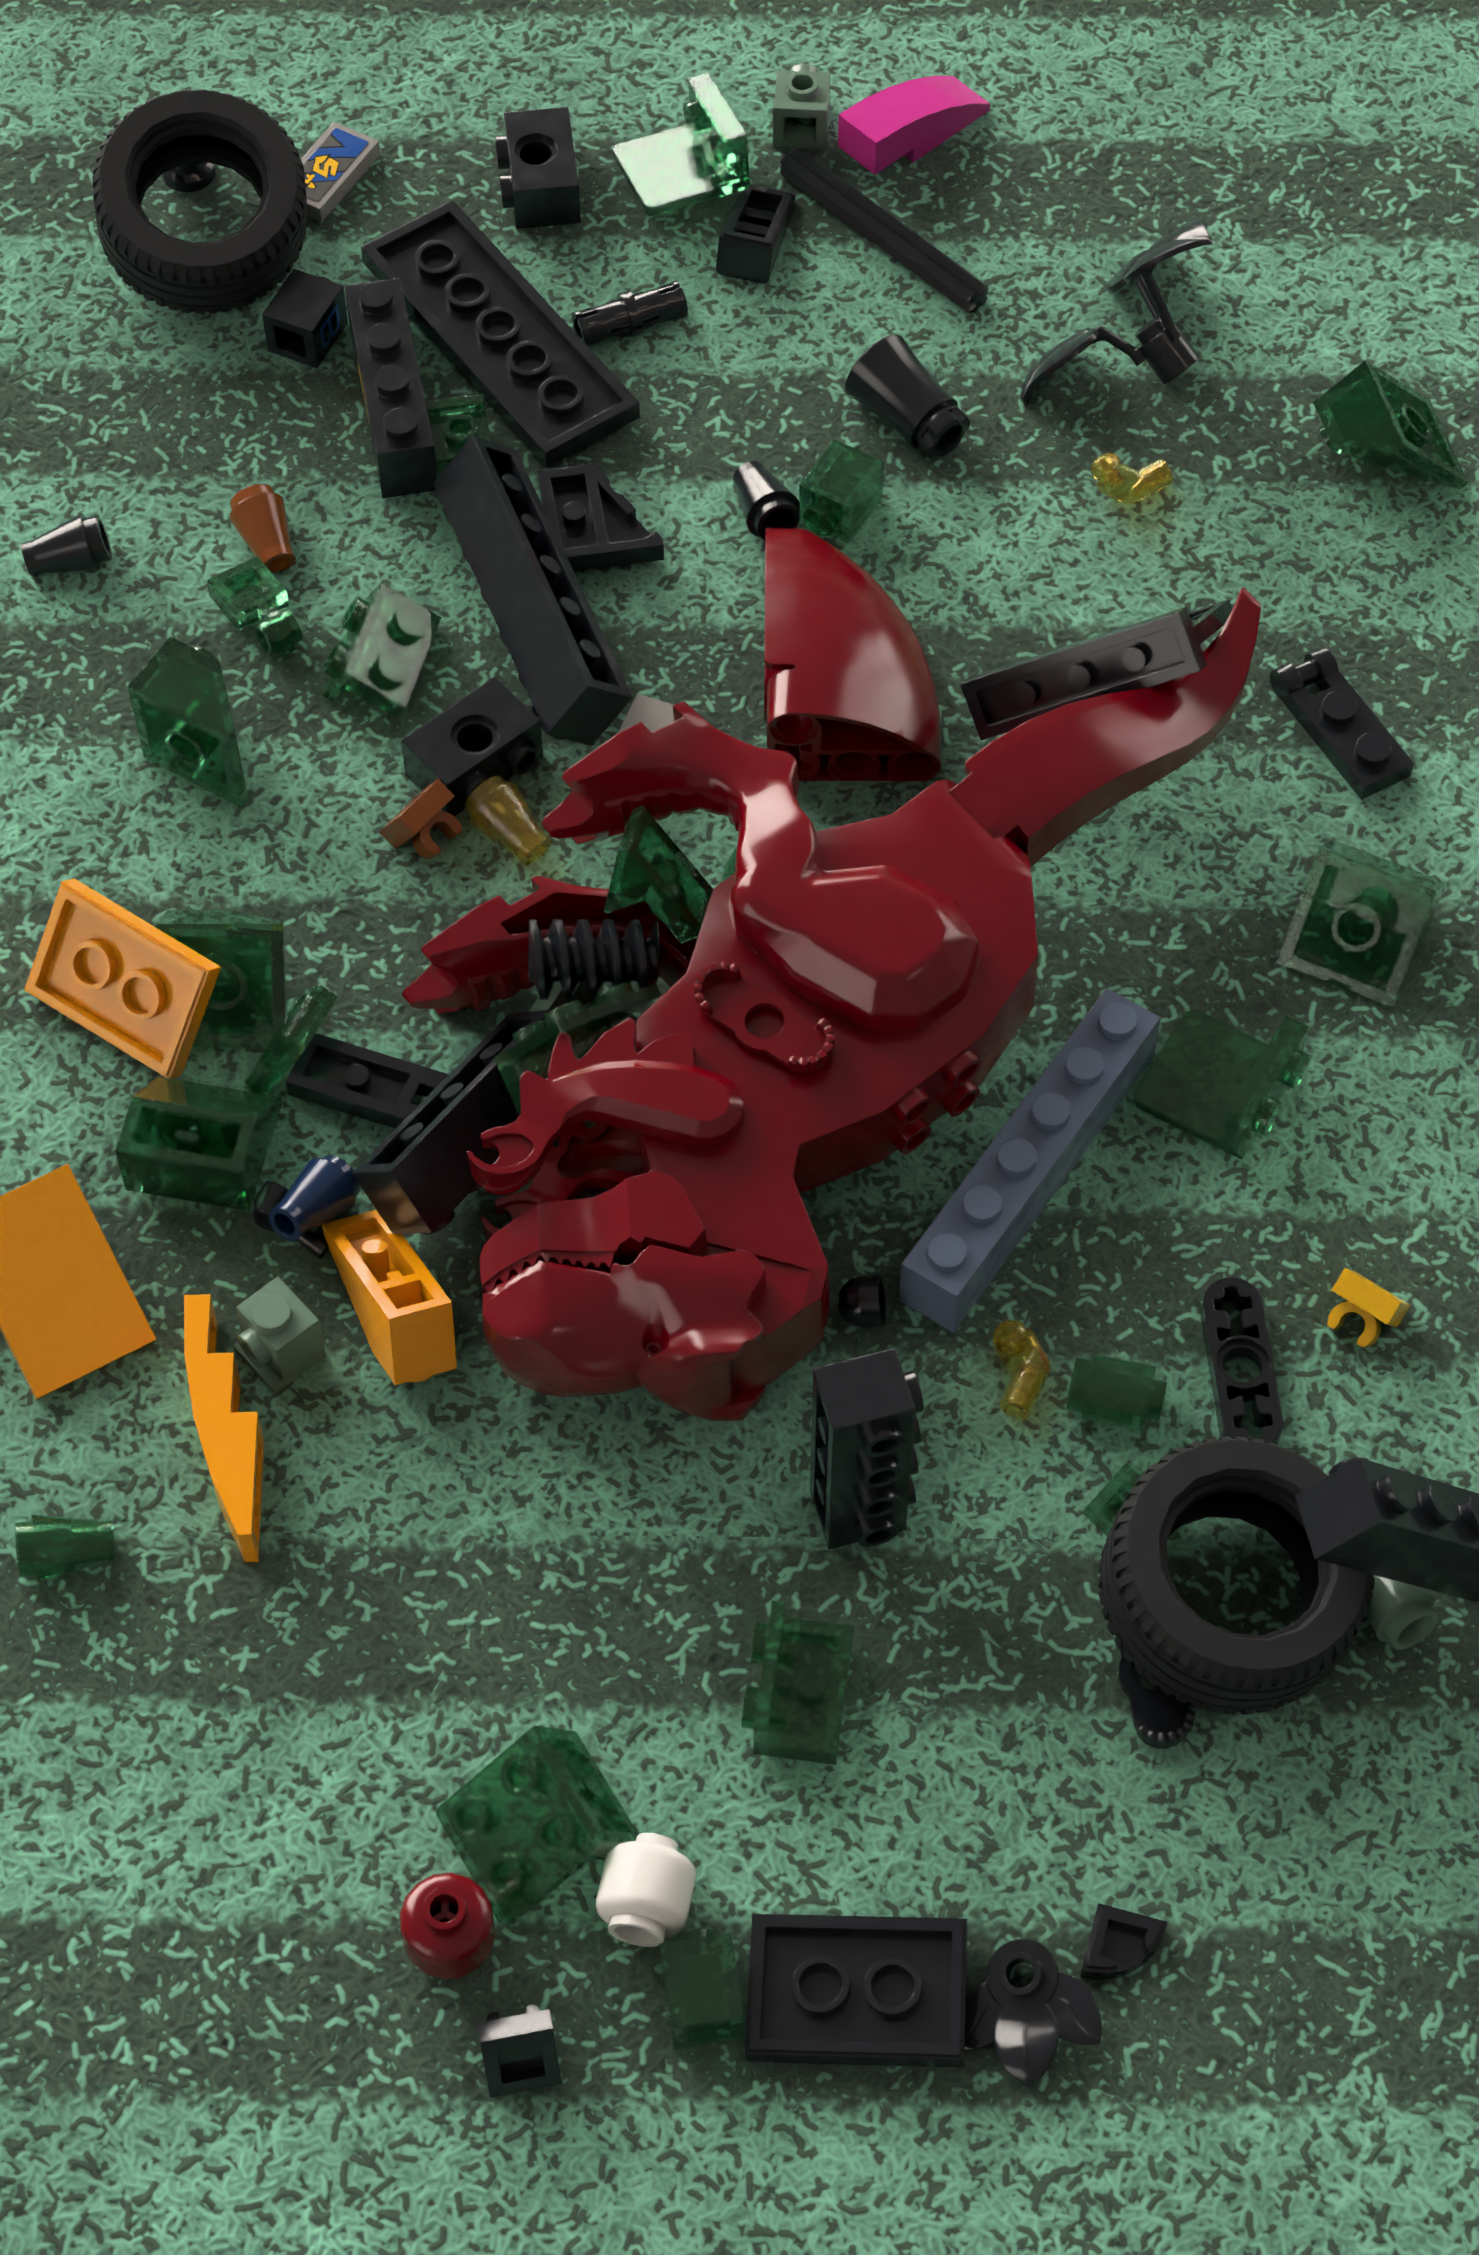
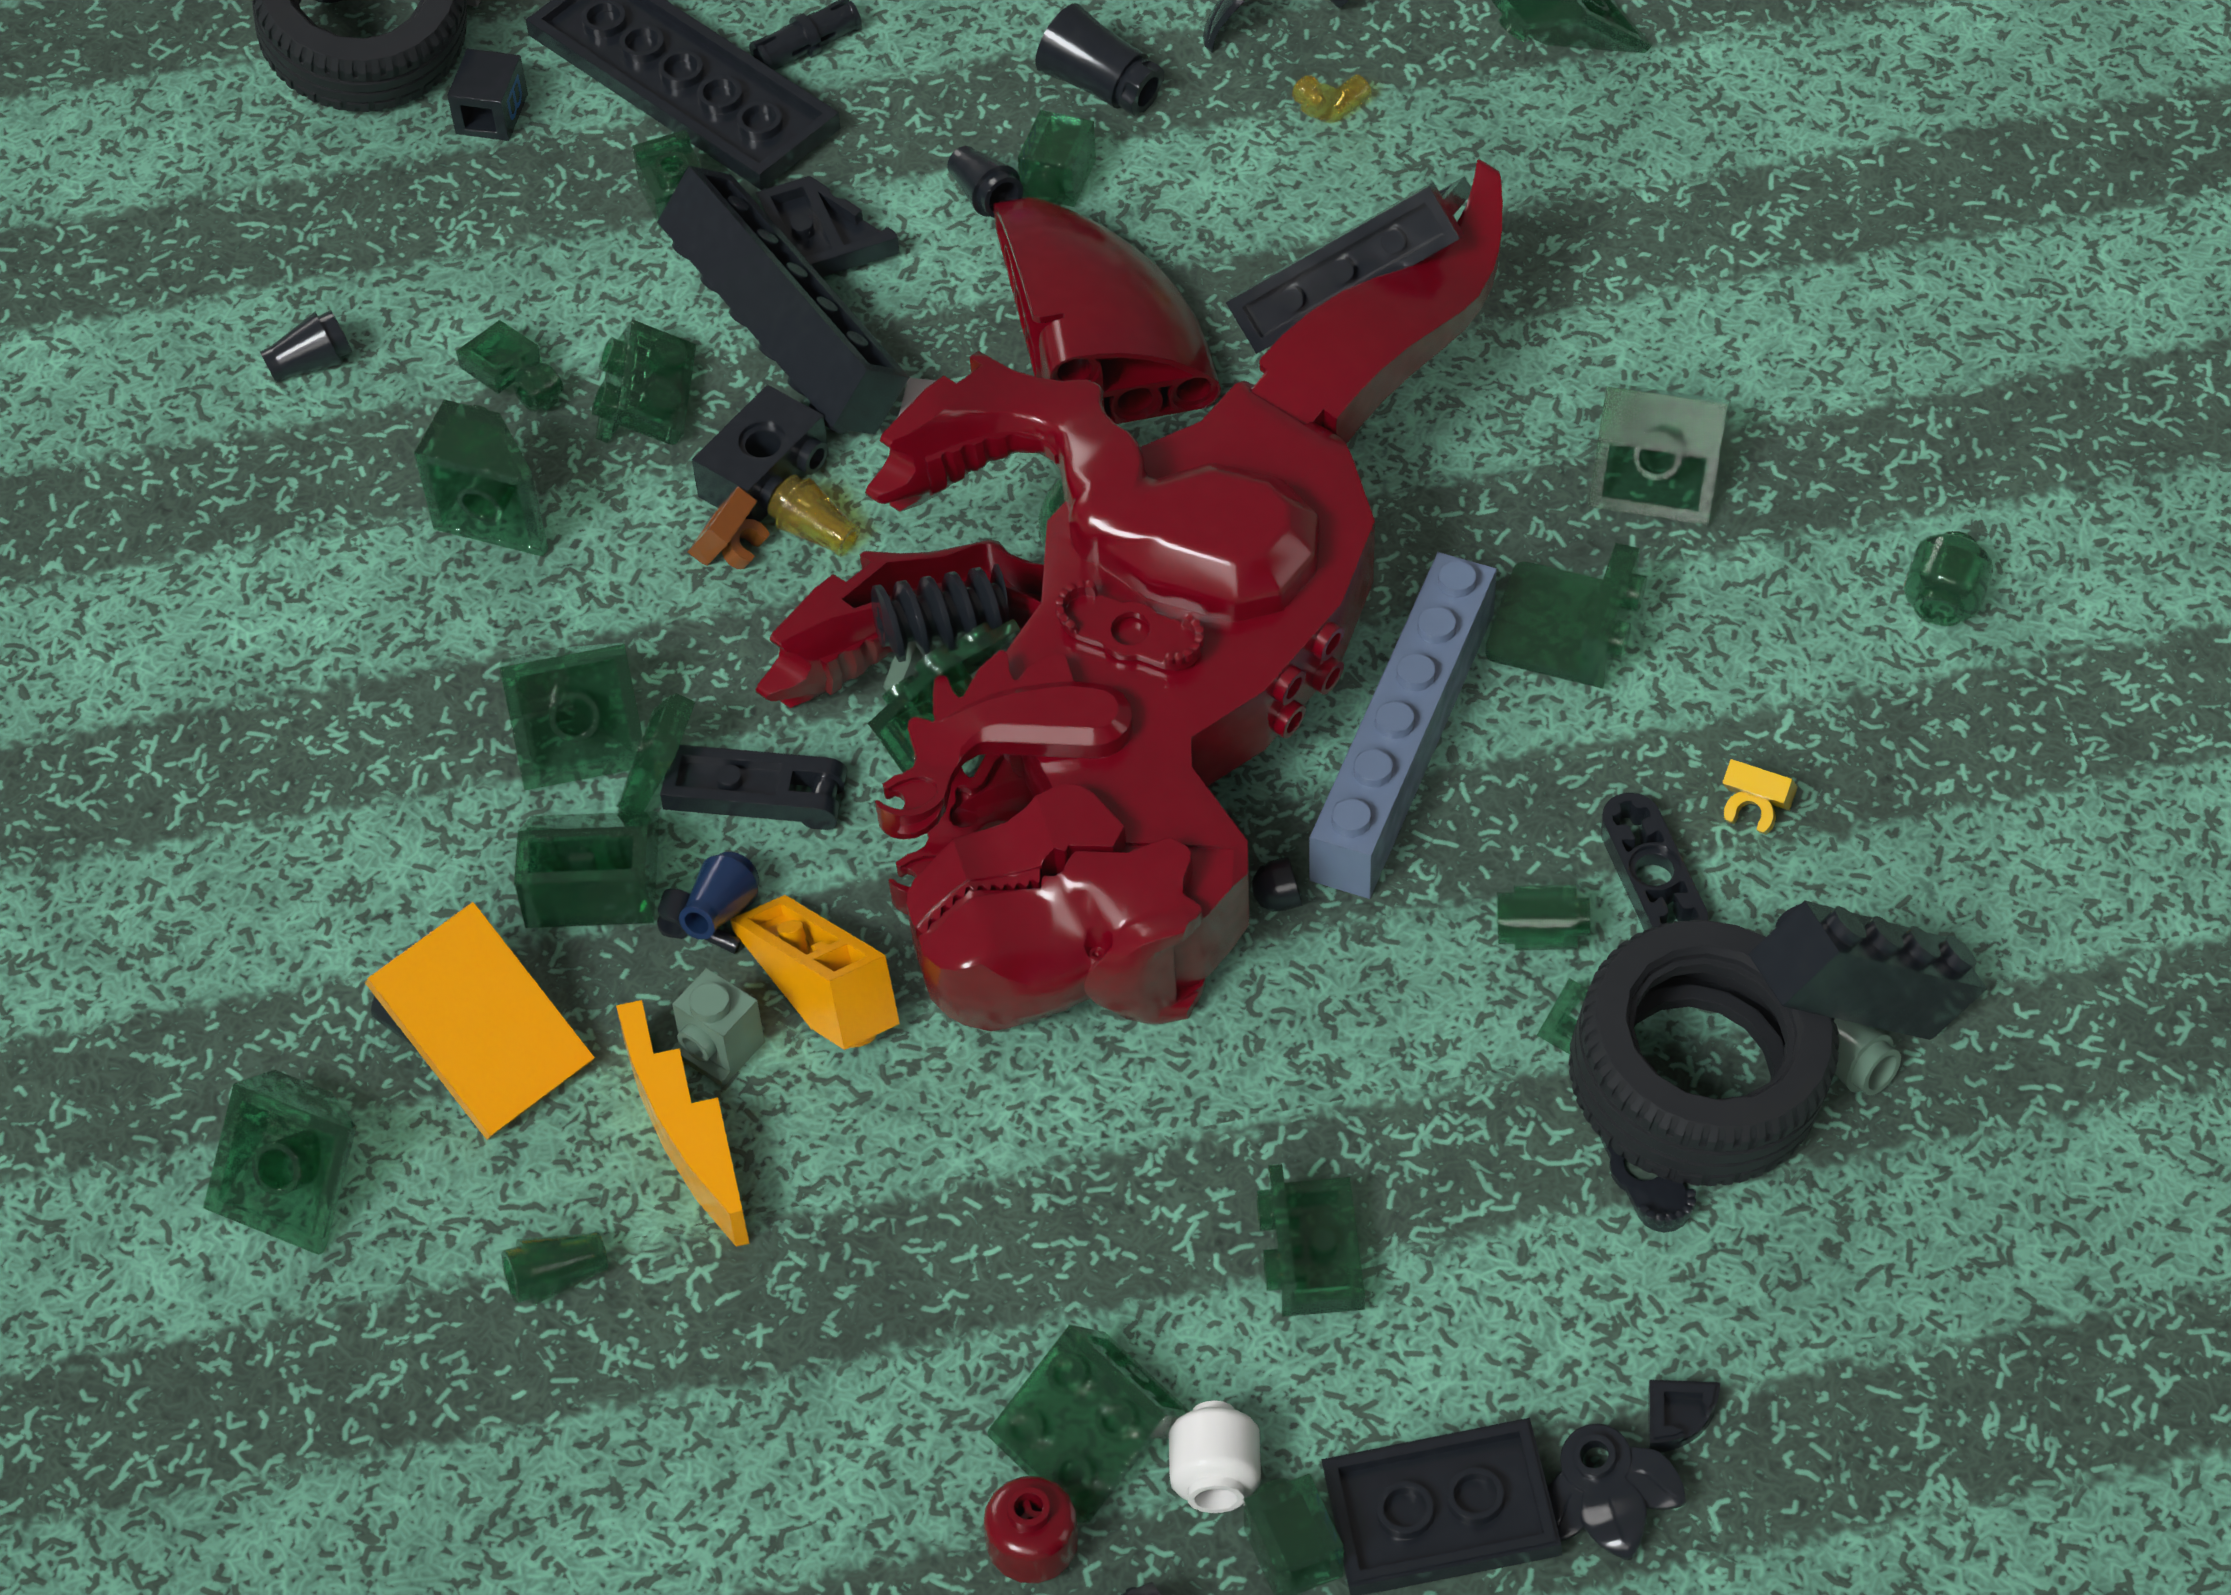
camera: 10 degrees left, 5 degrees down
(122, 978) = (473, 729): light orange tile -> none
(263, 525) = (495, 290): dark orange cone -> none
(391, 387) = (591, 142): black brick -> none
(424, 1162) = (833, 818): black brick -> none
(658, 872) = (988, 518): clear green slope -> none
(864, 1448) = (1323, 1002): black brick -> none
(1024, 1363) = (1447, 912): clear yellow arm -> none
(1341, 724) = (1591, 280): black plate -> none

